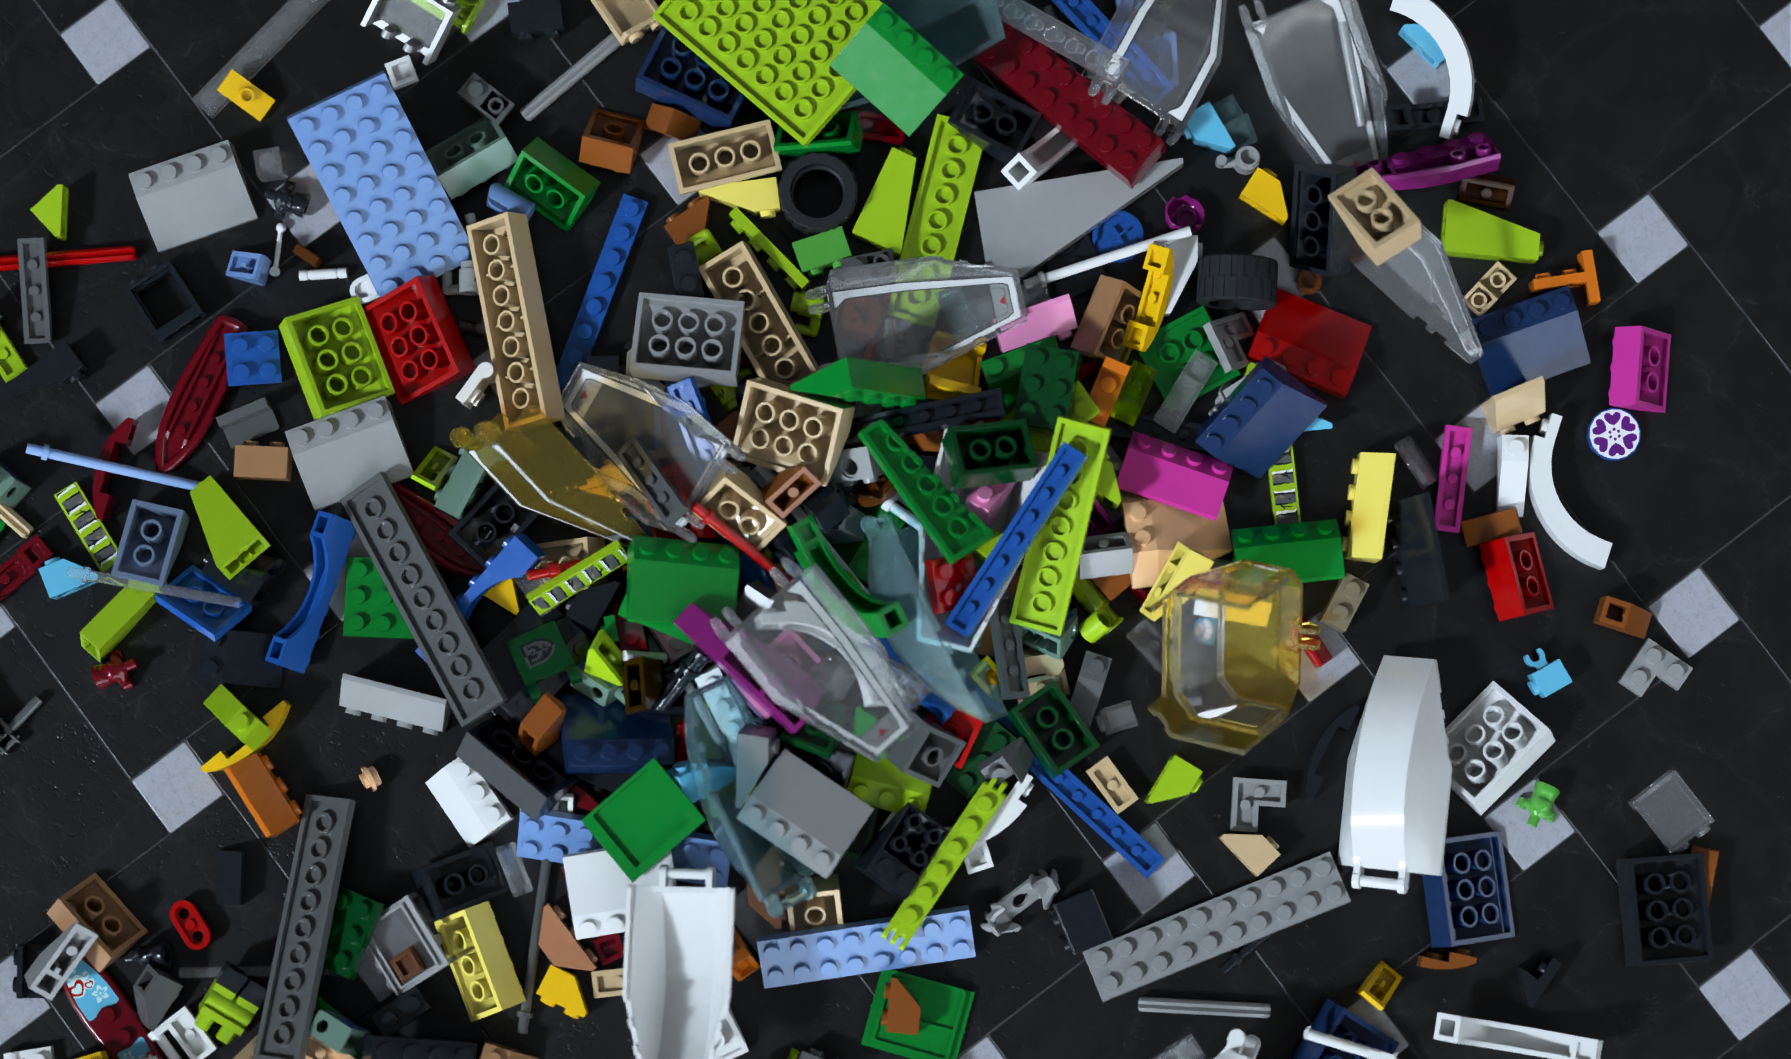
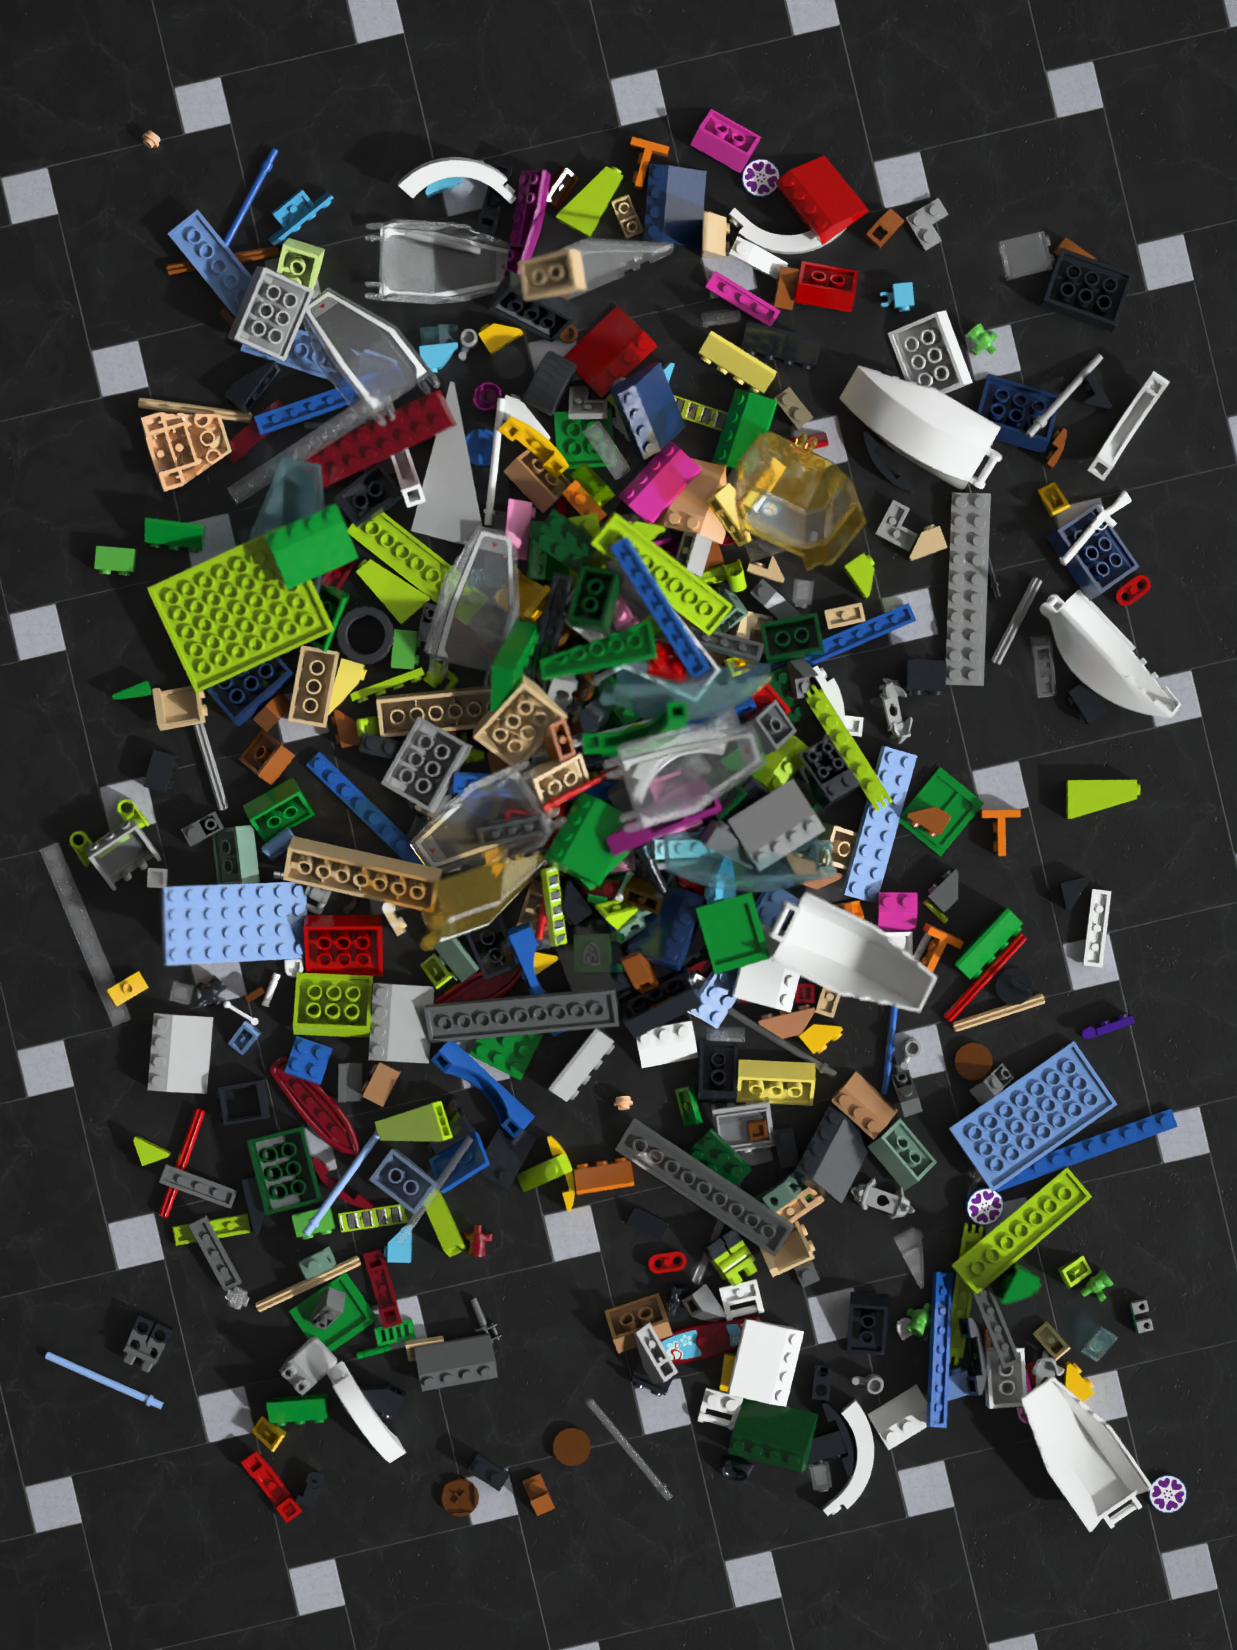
camera: 70 degrees left, 5 degrees up
(51, 470) = (301, 1219): none -> bright green brick
(100, 389) = (285, 1170): none -> dark green slope
(401, 863) = (688, 1106): none -> green plate
(766, 1019) = (897, 911): none -> dark pink slope
(1124, 668) = (772, 573): none -> tan slope
(1473, 925) = (1042, 419): none -> light grey bar
(1624, 519) = (821, 198): none -> red slope

